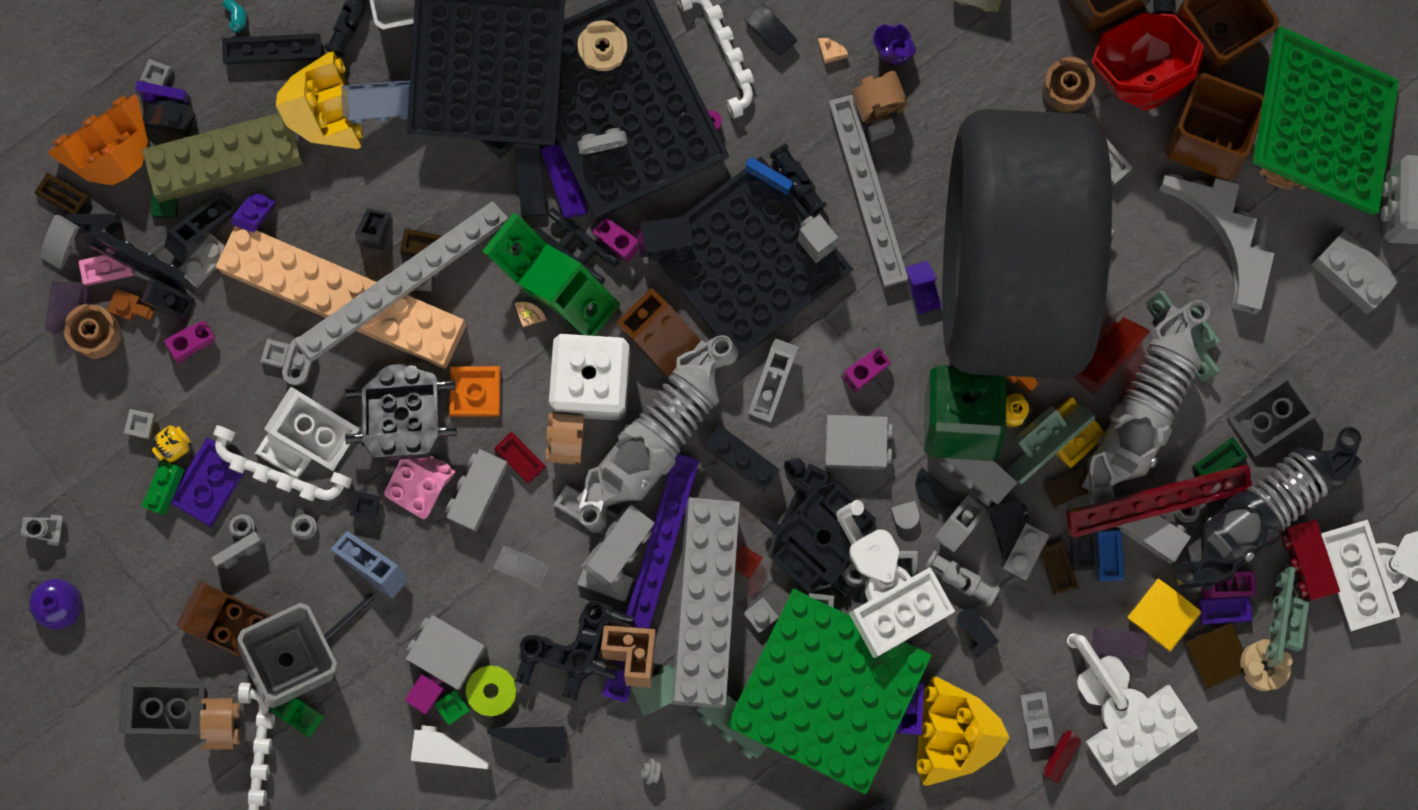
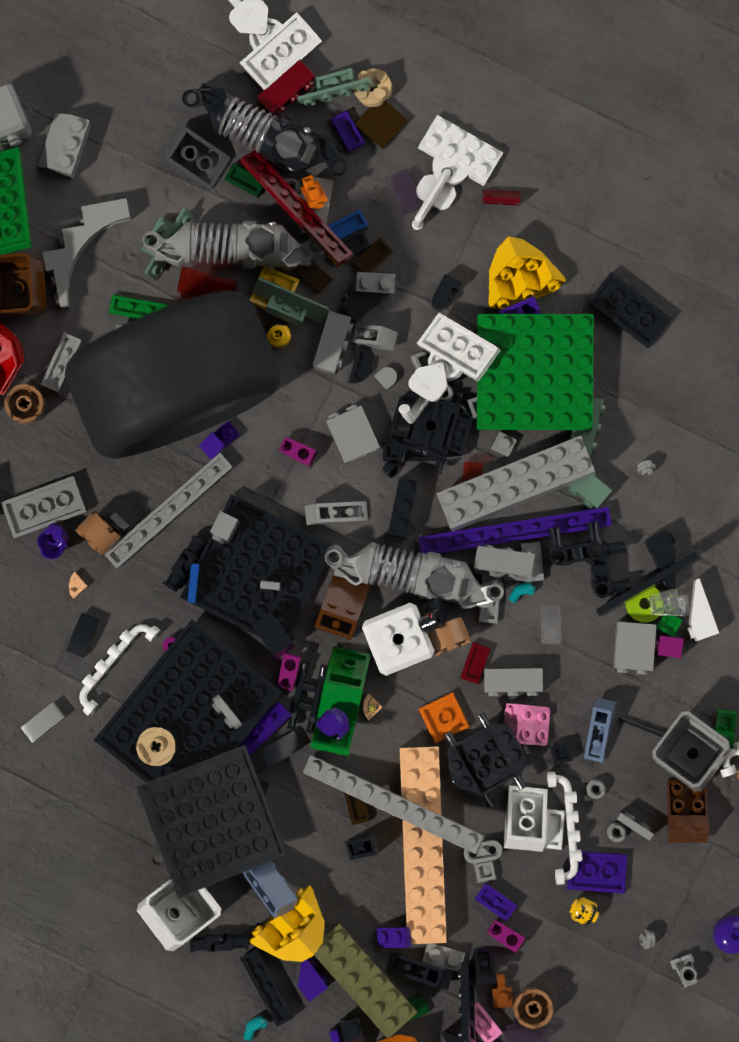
camera: 115 degrees left, 5 degrees up
(101, 501) = (647, 939): none -> light grey plate
(140, 424) = (580, 940): light grey plate -> none
(163, 487) = (617, 901): green plate -> none
(234, 348) = (495, 902): none -> dark purple plate
(253, 99) = (310, 981): none -> dark purple slope
(474, 718) = (669, 604): none -> clear slope
(509, 704) = (649, 583): none -> black tile
(528, 253) = (334, 722): none -> dark purple hair
(579, 551) = (521, 589): none -> teal arm
(595, 429) = (434, 615): none -> black leg
(636, 648) = (570, 515): medium nougat brick -> none
(724, 261) = (270, 585): none -> light grey tile
(938, 54) = (43, 507): none -> light grey plate
(957, 576) = (412, 322): light grey piece -> none
(962, 428) = (313, 364): dark green plate -> none
(1037, 720) = (484, 224): light grey slope -> none
(1125, 262) = (132, 307): none -> green tile
(1164, 615) = (371, 171): yellow slope -> none
(1168, 527) = (313, 193): none -> orange hips
(1250, 587) = (323, 121): magenta slope -> none

